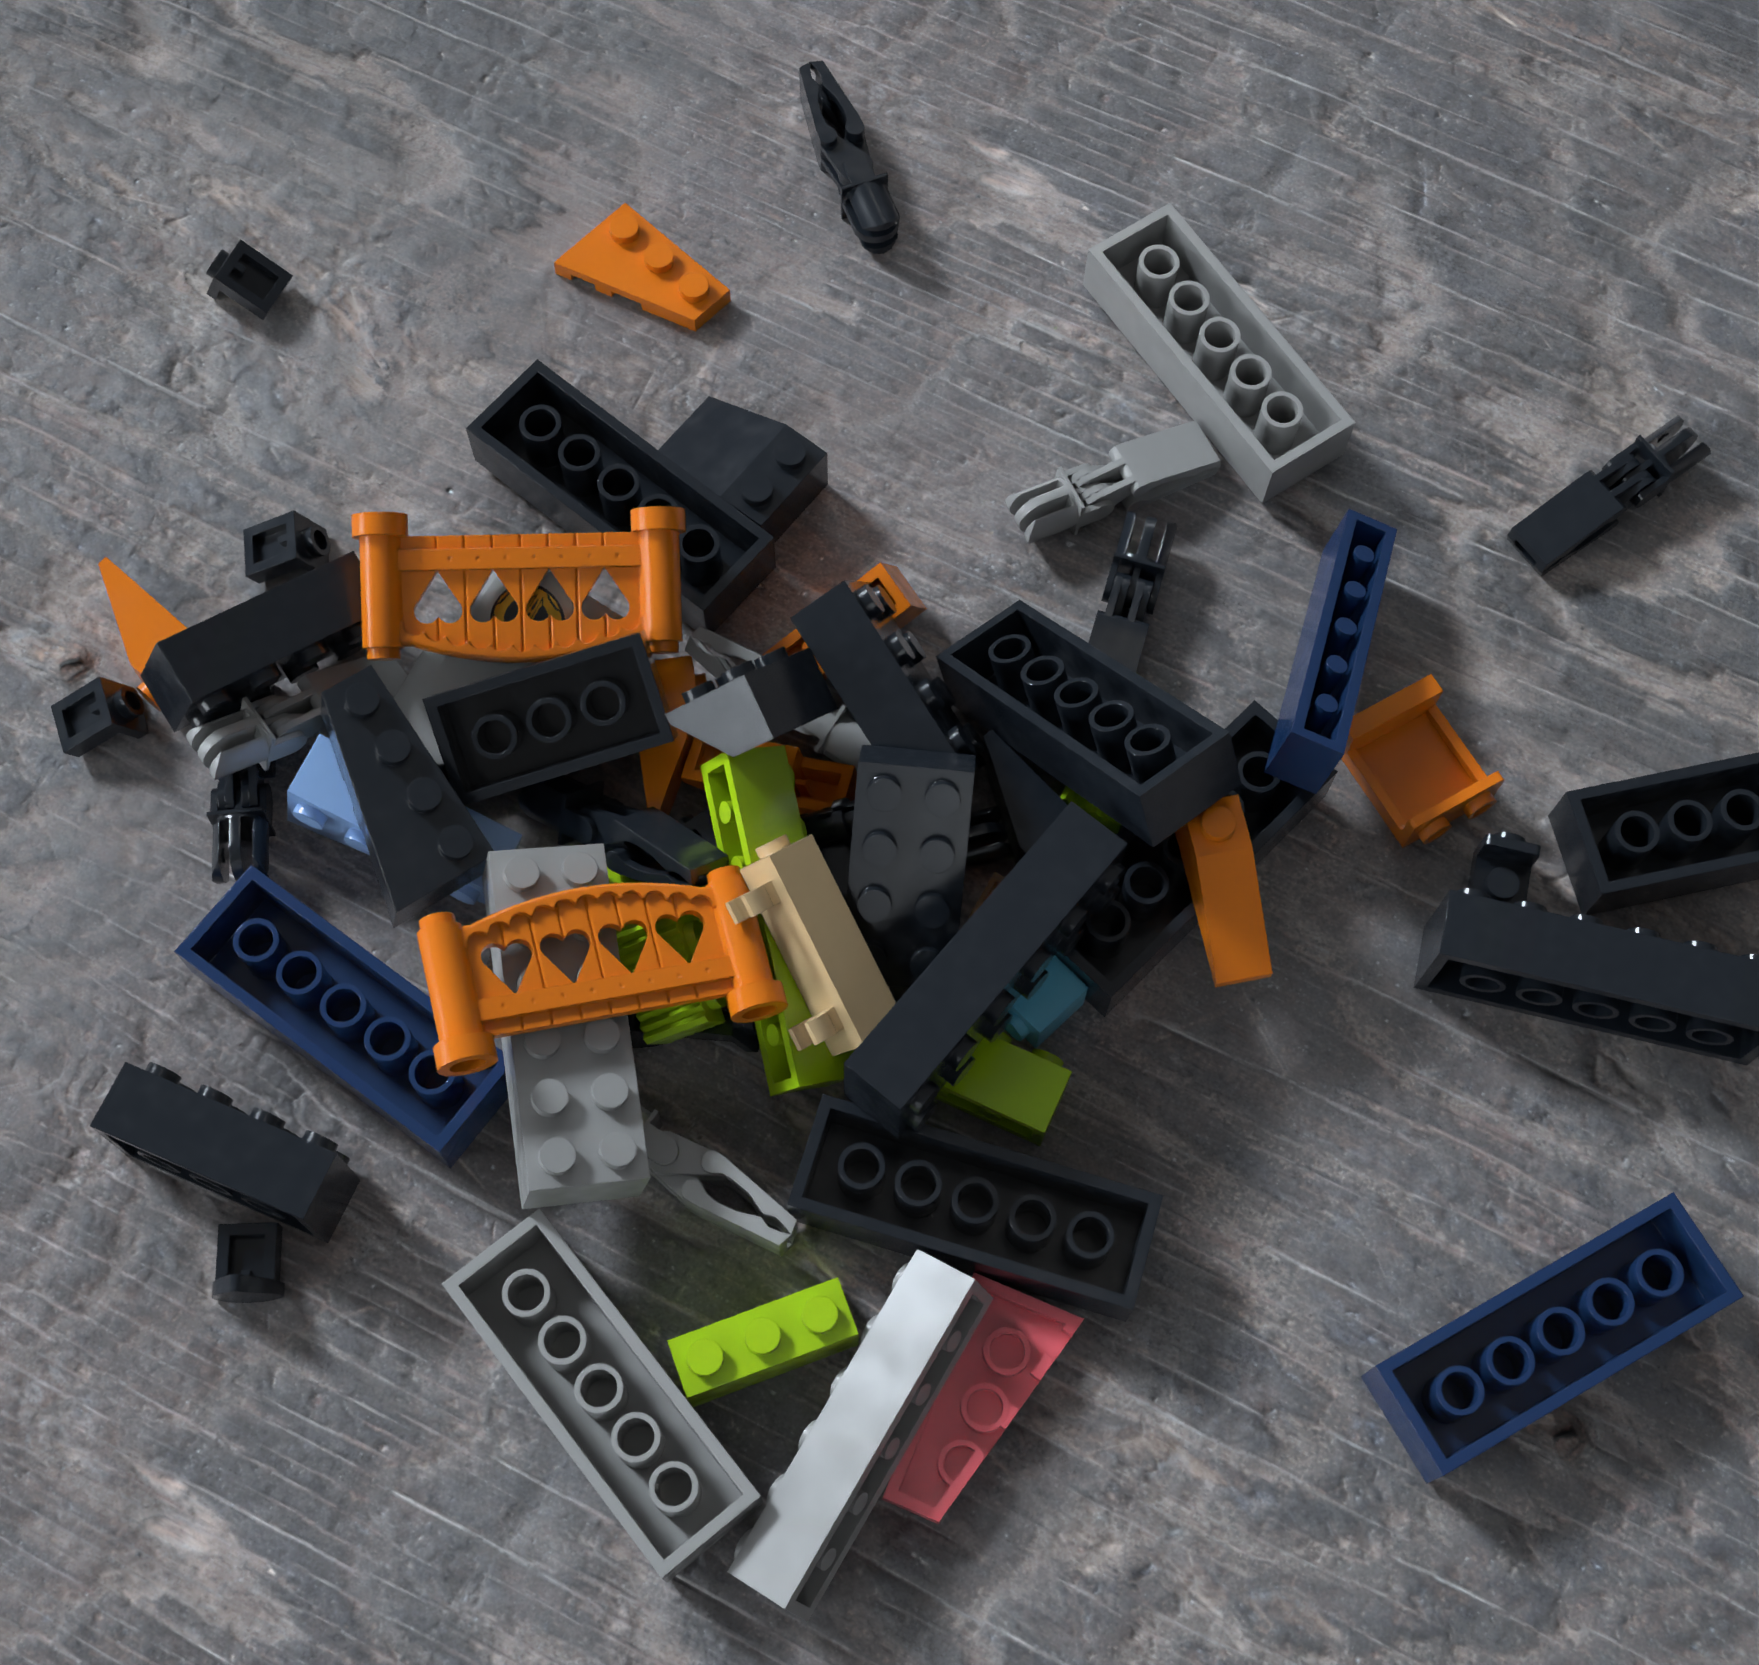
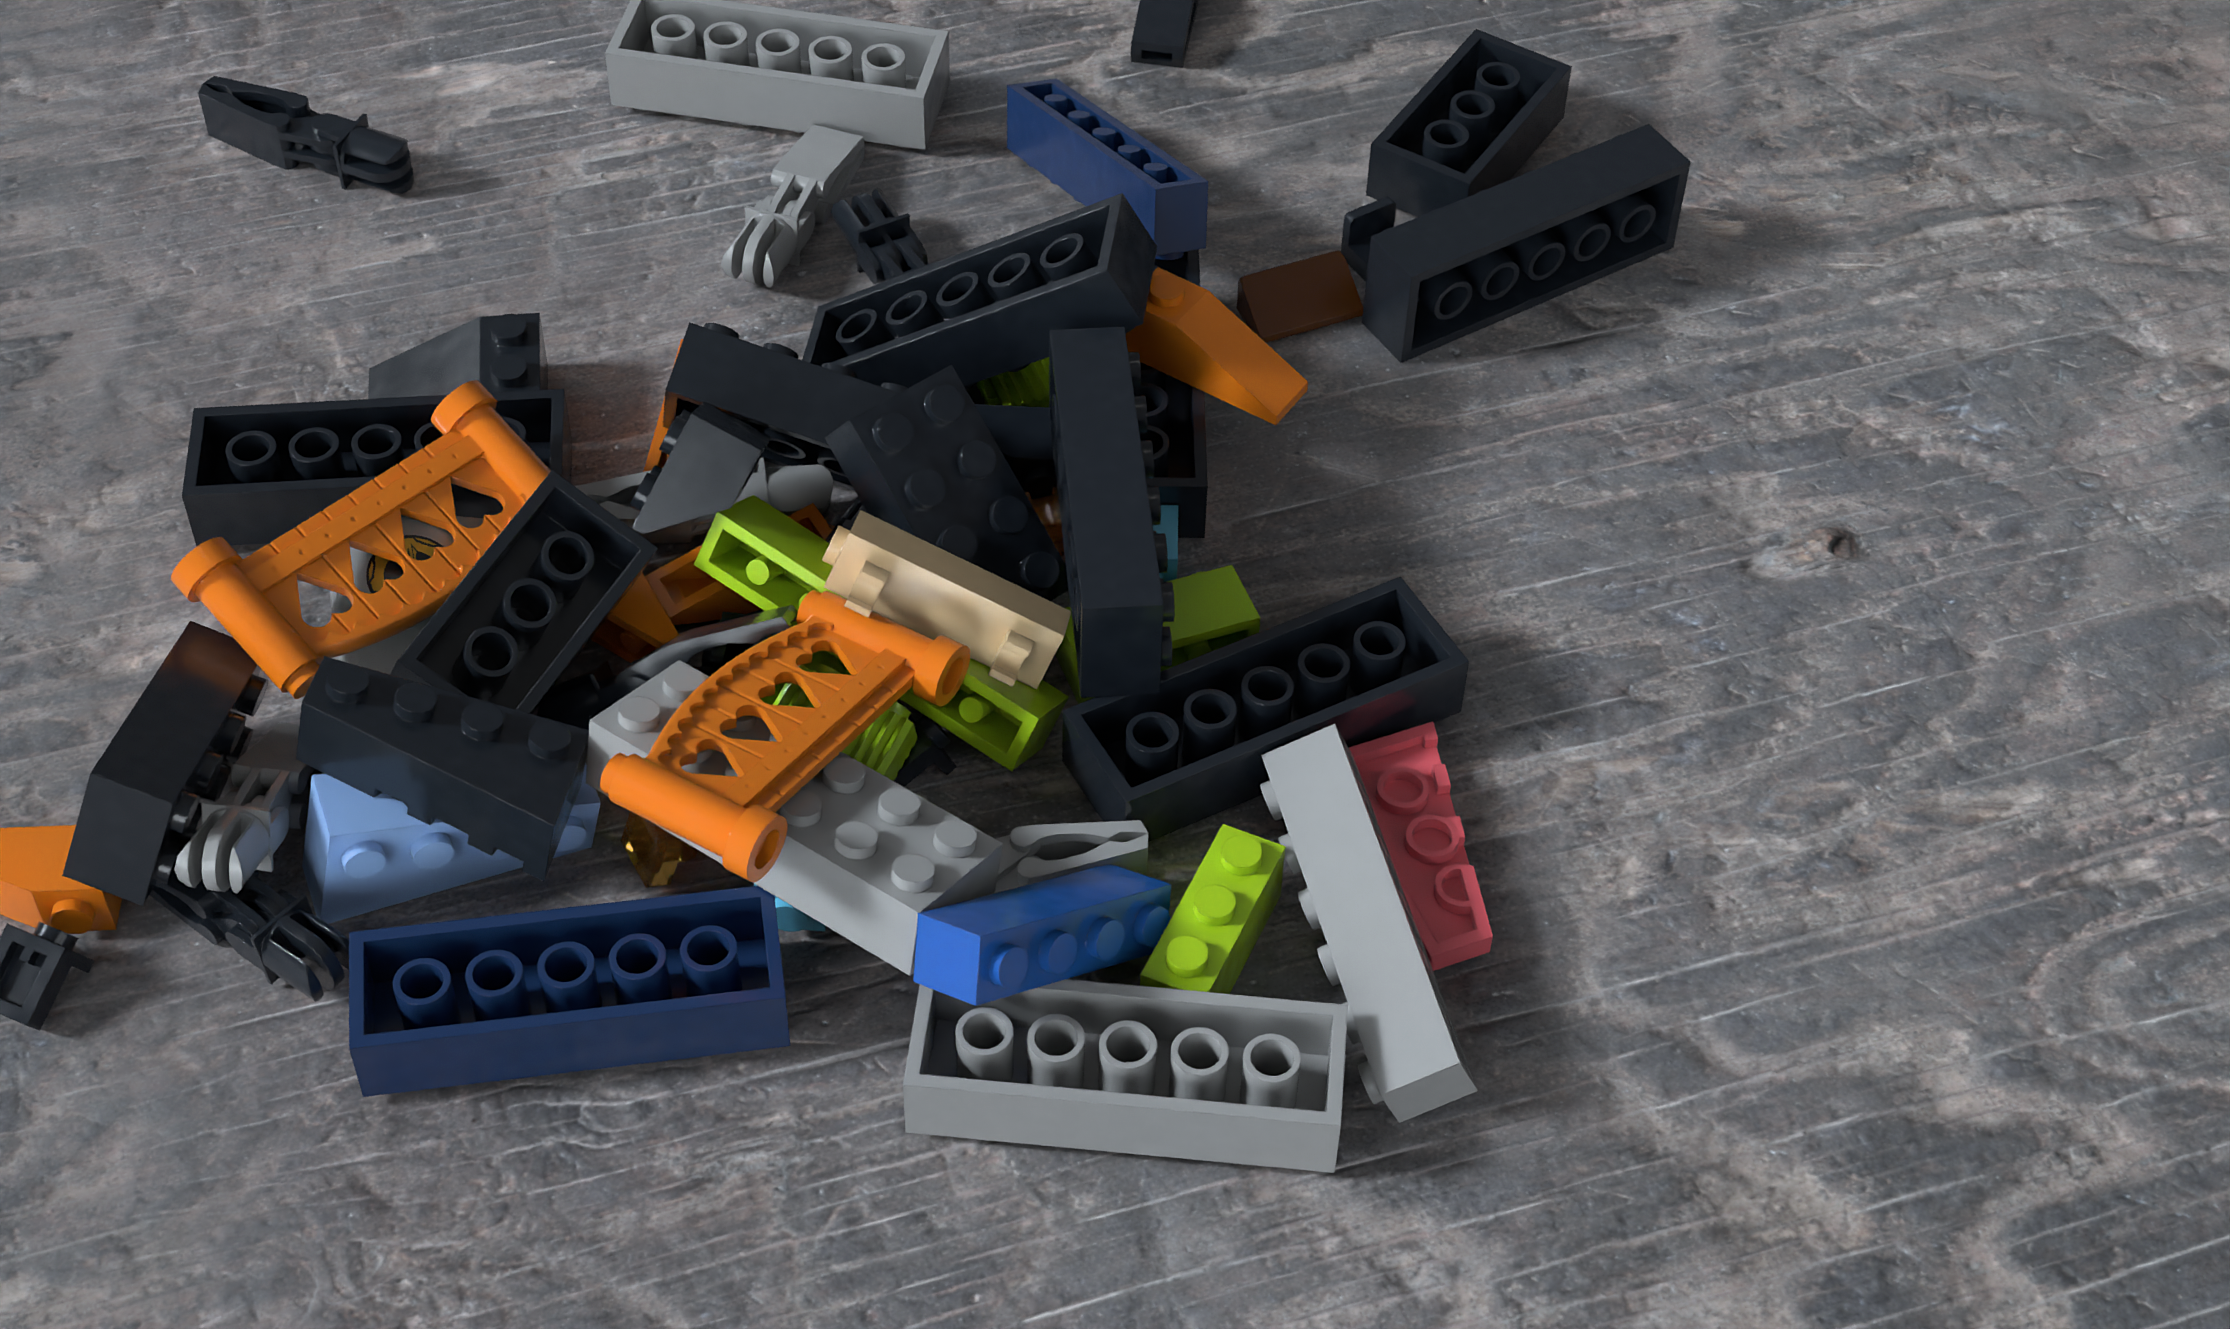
camera: 45 degrees left, 20 degrees down
(226, 1150) = (579, 1166): black brick -> none
(248, 1263) = (685, 1263): black tile -> none
(284, 546) = (77, 721): black bracket -> none
(627, 1258) = (1040, 933): none -> blue brick
(644, 265) = (195, 318): orange wing -> none
(1390, 871) = (1298, 296): none -> reddish brown slope
(1416, 765) = (1254, 226): orange panel -> none
(1550, 1337) = (1757, 478): dark blue brick -> none

